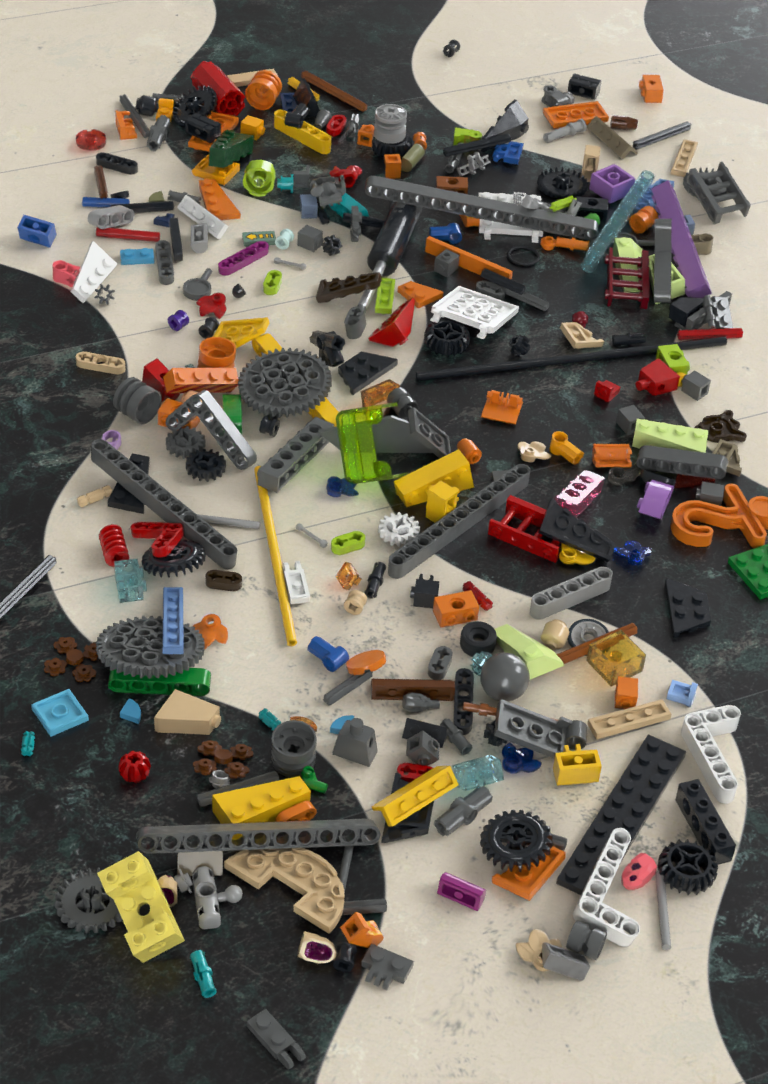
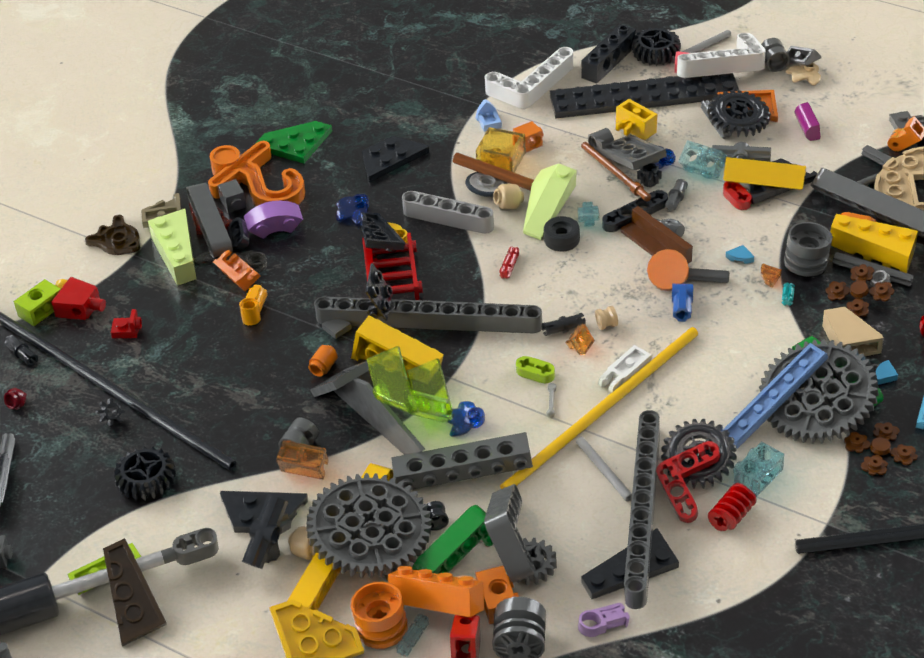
camera: 120 degrees left, 0 degrees up
(94, 496) = (681, 579): tan axle -> none
(205, 465) = (546, 522): black gear -> none
(213, 631) = (744, 384): orange plate -> none
(223, 580) = (672, 417): dark brown beam -> none
(356, 742) = (755, 220): dark grey torso -> none
(397, 327) = (156, 525): red wedge -> none
(398, 529) = (484, 343): white gear -> none
(415, 726) = (695, 208): black hinge -> none
(422, 294) = (72, 548): orange wing -> none
(423, 749) = (716, 193): dark grey brick -> none
(424, 592) = (544, 286): black brick -> none
(441, 501) = (426, 323): yellow brick -> none
(444, 663) = (610, 242): dark grey beam -> none
(456, 608) = (543, 260): orange brick -> none
(474, 310) = (80, 470): white plate -> none
(489, 479) = (379, 294): none -> black hinge
(490, 289) = (10, 494): dark grey beam -> none
(502, 408) = (226, 377): orange hinge -> none
(504, 677) = (597, 183): dark grey piece -> none
(531, 451) = (274, 326): tan plate -> none
(579, 336) = (48, 384): tan wing -> none
(580, 492) = (322, 254): clear pink brick -> none
(627, 418) = (165, 286): dark grey brick -> none
(629, 719) = (553, 127): tan plate -> none
(695, 385) = (65, 268): dark grey brick -> none

